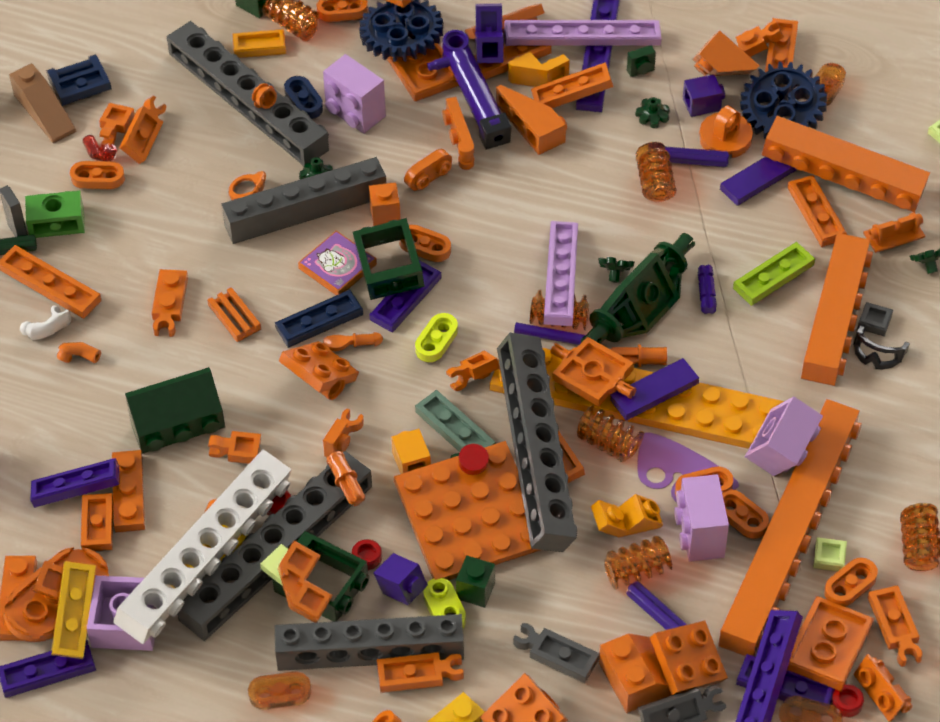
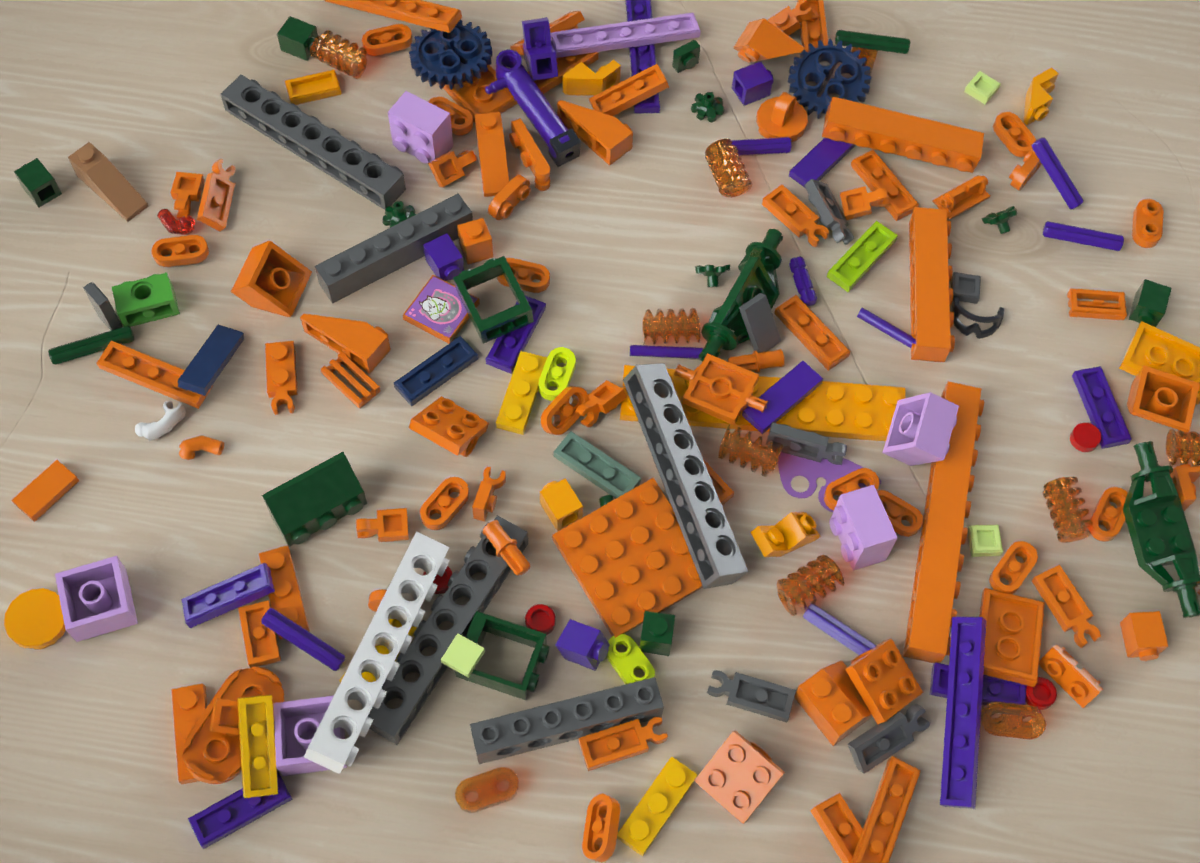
camera: 15 degrees left, 10 degrees up
(79, 80) = (140, 151): dark blue plate -> none
(104, 275) = (211, 360): none -> dark blue tile
(134, 529) = (303, 639): none -> dark purple axle
(178, 213) = (271, 280): none -> orange slope
(247, 277) = (354, 338): none -> orange slope
(258, 179) = (343, 231): orange piece -> none
(264, 96) = (333, 145): orange plate -> none
(296, 436) = (443, 504): none -> orange plate
(301, 594) = (491, 687): orange tile -> none
(306, 98) = (372, 139): dark blue plate -> none
(340, 342) = (462, 393): orange piece -> none
(349, 214) = (443, 257): none -> dark purple brick
(375, 133) = (449, 166): none -> orange plate
(396, 90) = (457, 113): none -> orange plate
(396, 351) = (521, 393): none -> yellow plate
(420, 124) = (491, 152): none -> orange slope
(433, 370) = (563, 412): none -> orange plate
(473, 459) = (628, 505): red tile -> none
(561, 274) = (666, 291): lavender tile -> none
(649, 318) = (760, 323): none -> dark grey tile
(668, 437) = (806, 444): none -> dark grey plate
(704, 338) = (812, 332): none -> orange tile
(714, 225) = (794, 214): none -> orange plate
(750, 225) = (829, 210): none -> dark grey plate
(780, 343) = (886, 327): none -> dark purple bar
(783, 221) = (859, 202): none -> orange plate
(838, 70) = (873, 41): none -> dark green axle

